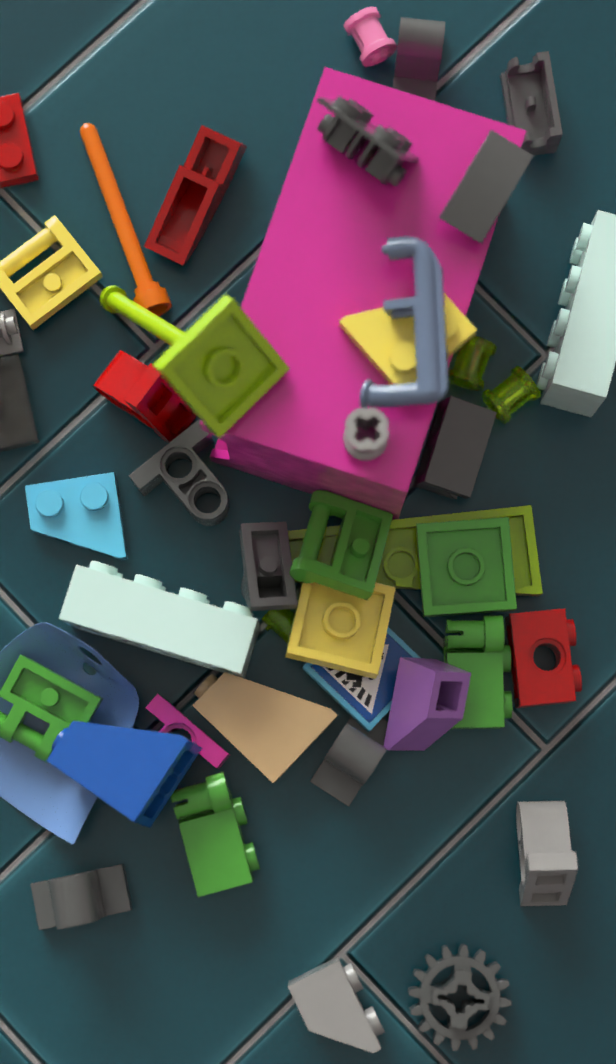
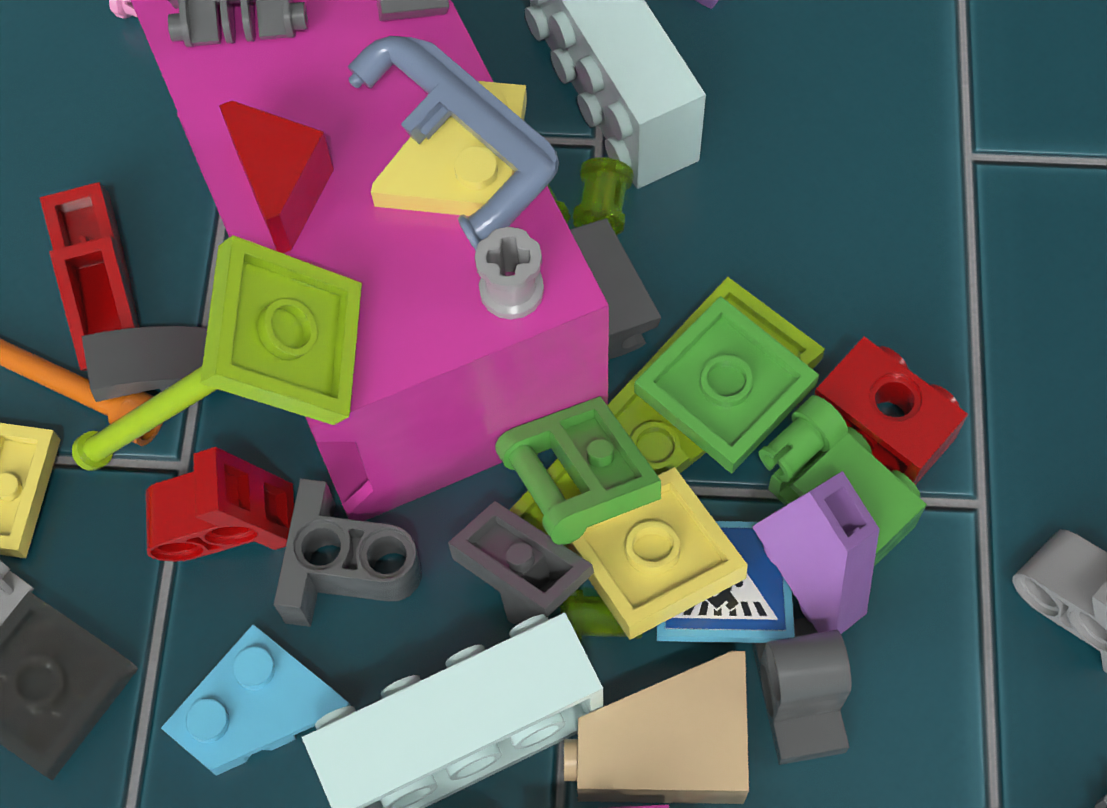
camera: 40 degrees left, 15 degrees down
(181, 276) = (141, 358): none -> dark grey slope
(302, 267) = (283, 165): none -> red slope

